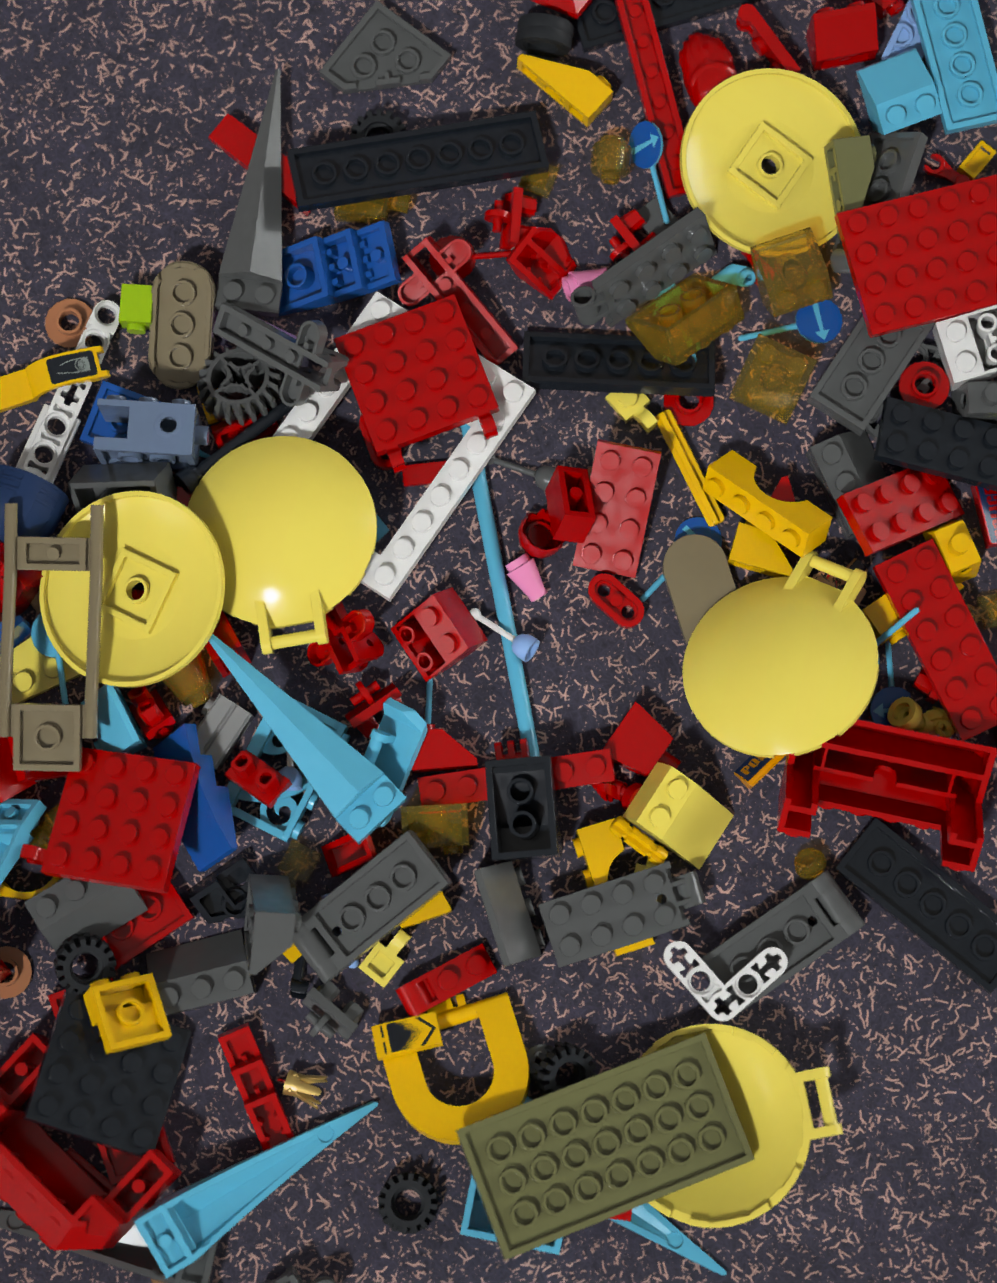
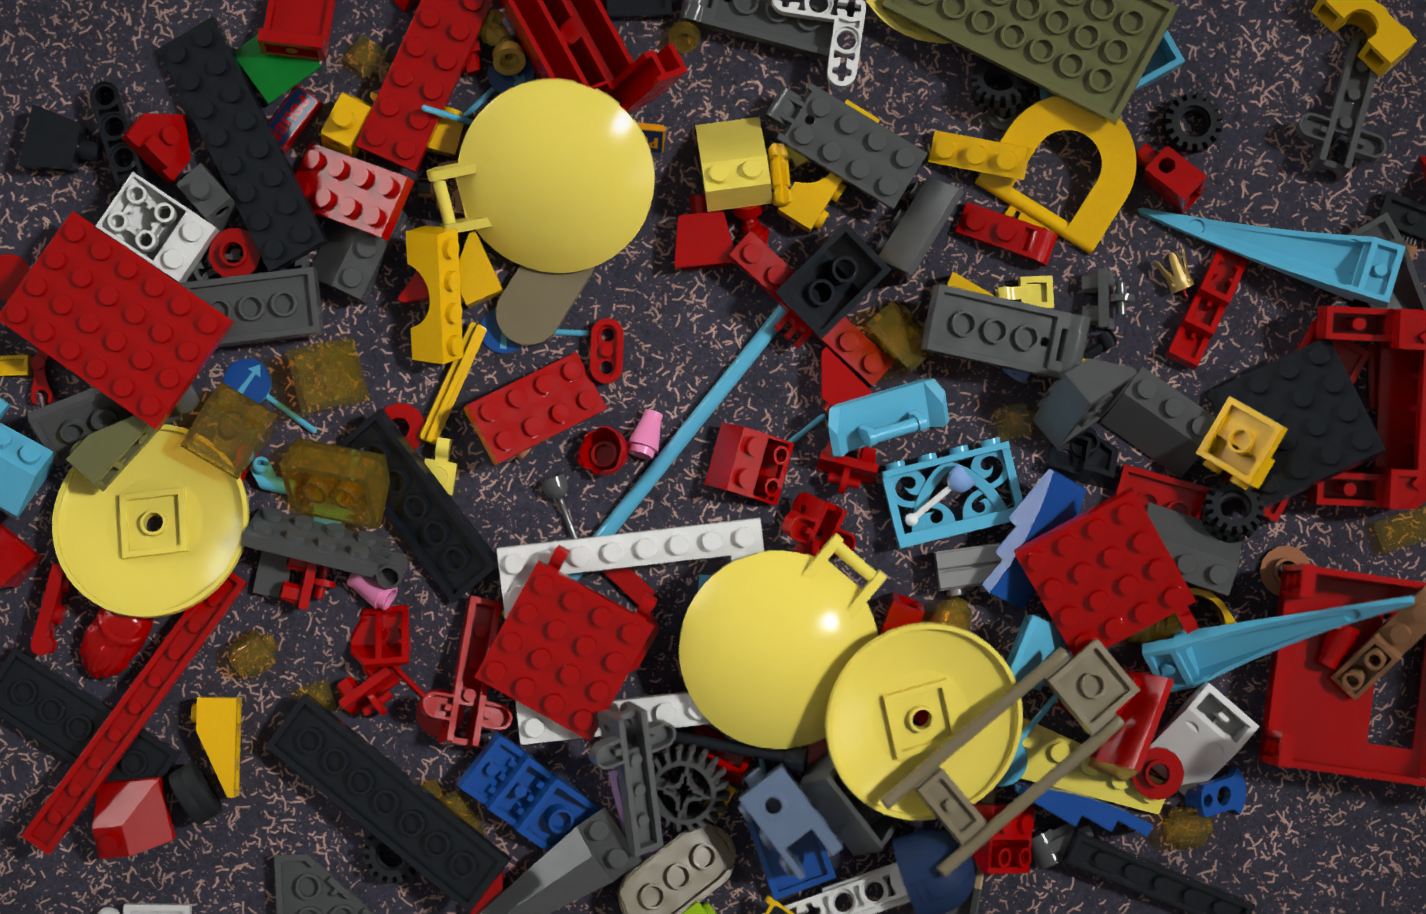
camera: 130 degrees left, 5 degrees up
(151, 712) = (1001, 627): red hips -> none
(257, 778) = (981, 500): red hips -> none
(343, 778) = (928, 432): medium azure plate -> none
(346, 854) = (973, 387): red slope -> none
(366, 1147) = (1179, 186): none -> red torso
(407, 1036) = (1073, 226): yellow tile -> none
(523, 645) = (704, 390): light blue hinge -> none
(524, 1010) = (979, 155): none -> yellow plate
(570, 504) = (564, 444): red brick -> none
(646, 152) = (224, 628): blue piece -> none

